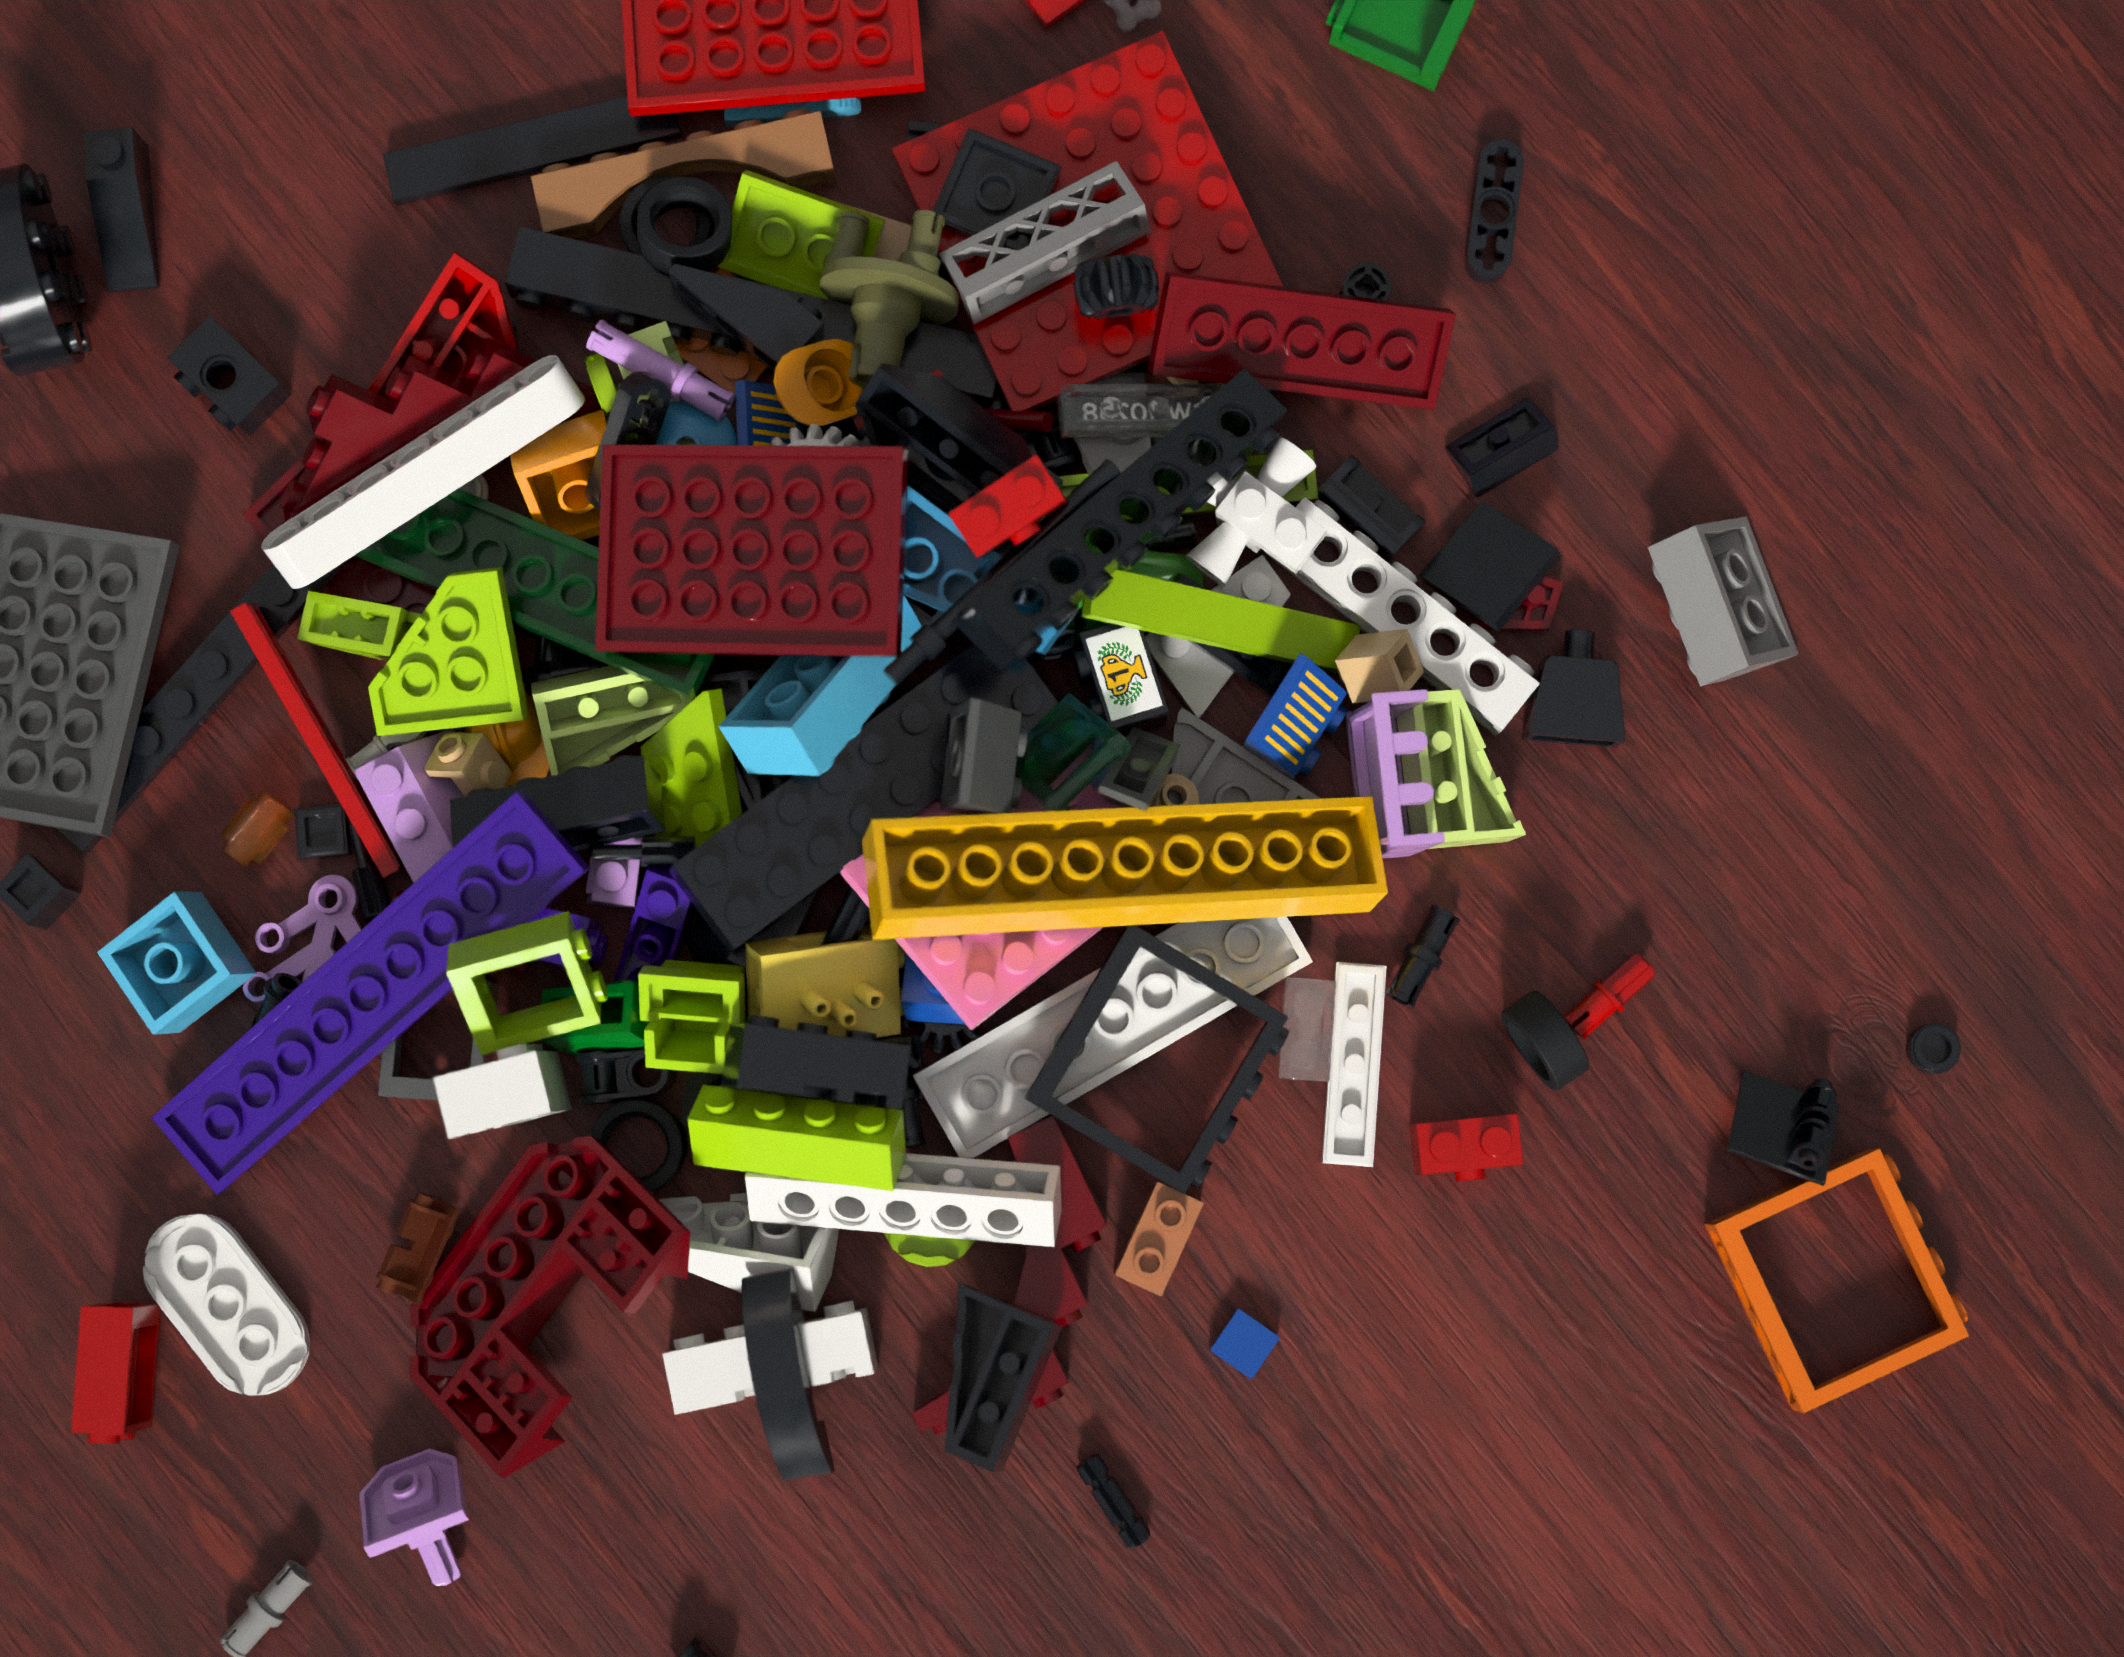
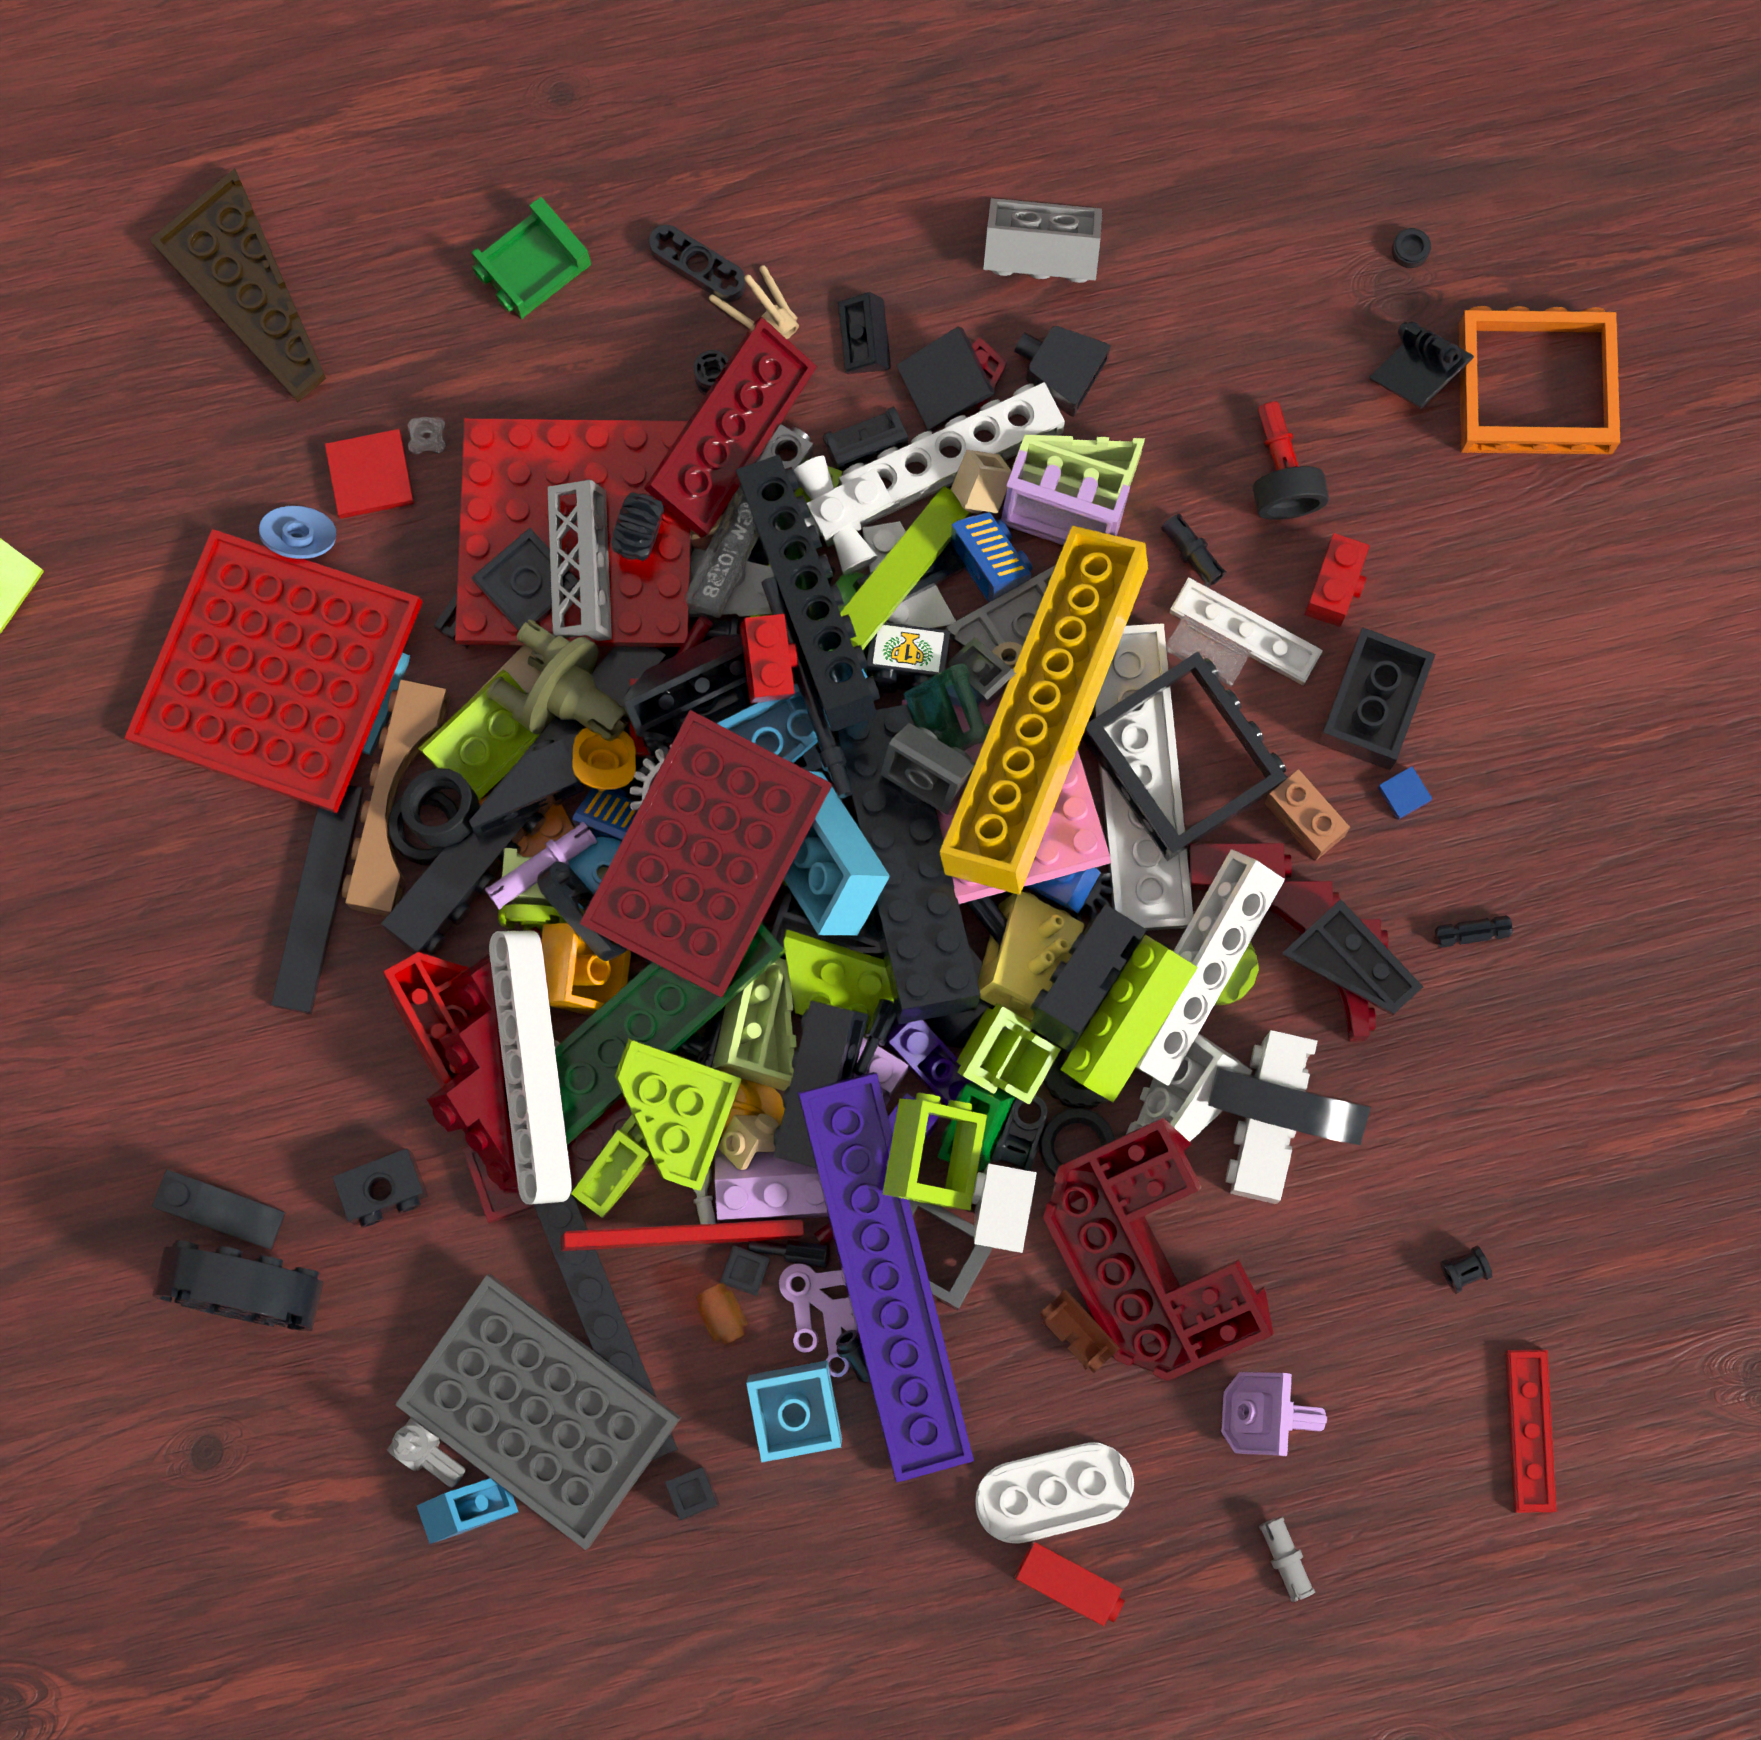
camera: 60 degrees left, 5 degrees down
(1320, 408) = (789, 439): none -> flat silver brick
(1339, 1258) = (1376, 698): none -> black brick
(1467, 336) = (779, 317): none -> tan plant

